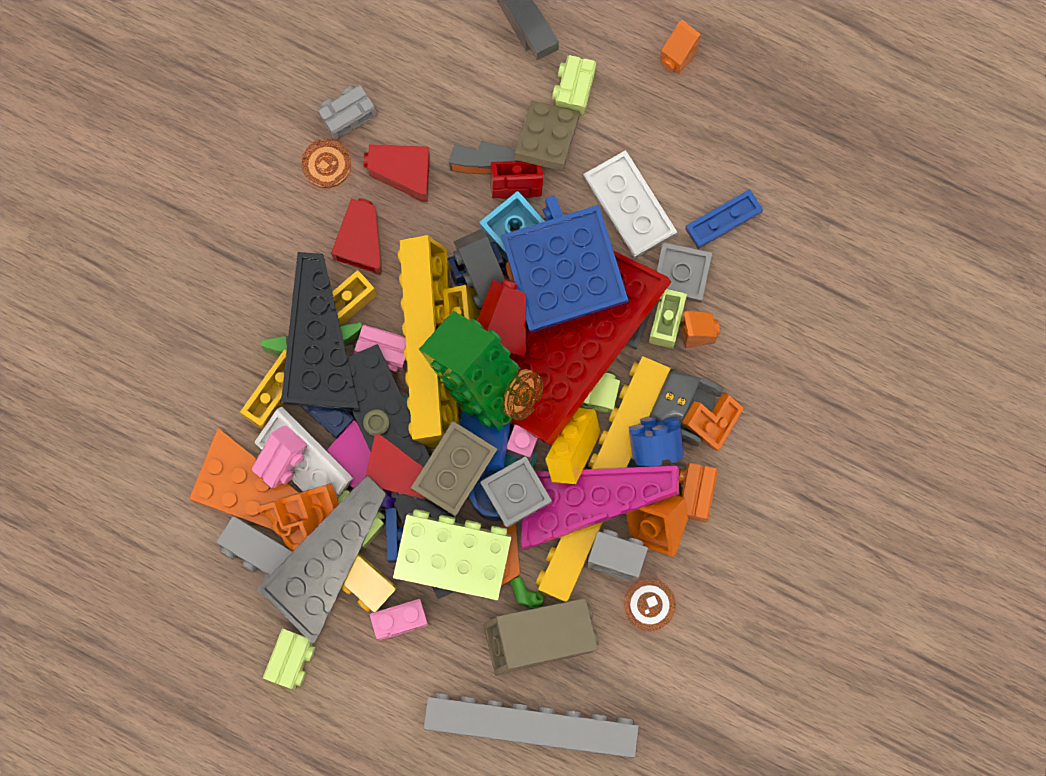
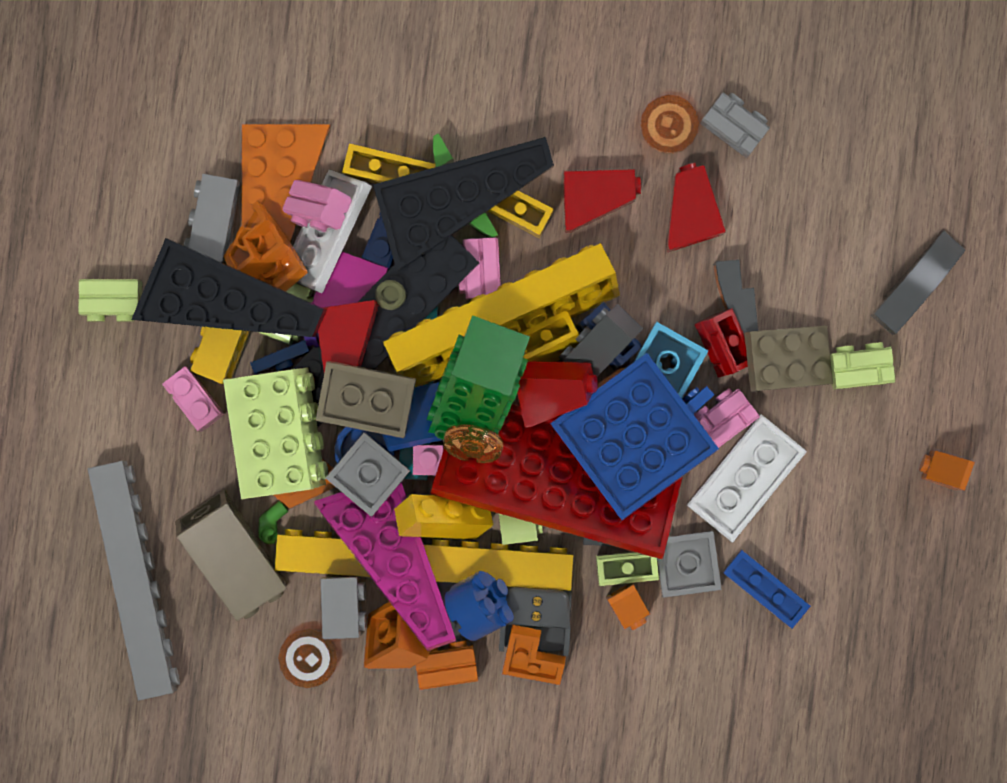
camera: 75 degrees right, 10 degrees up
(574, 193) = (727, 417): none -> bright pink brick

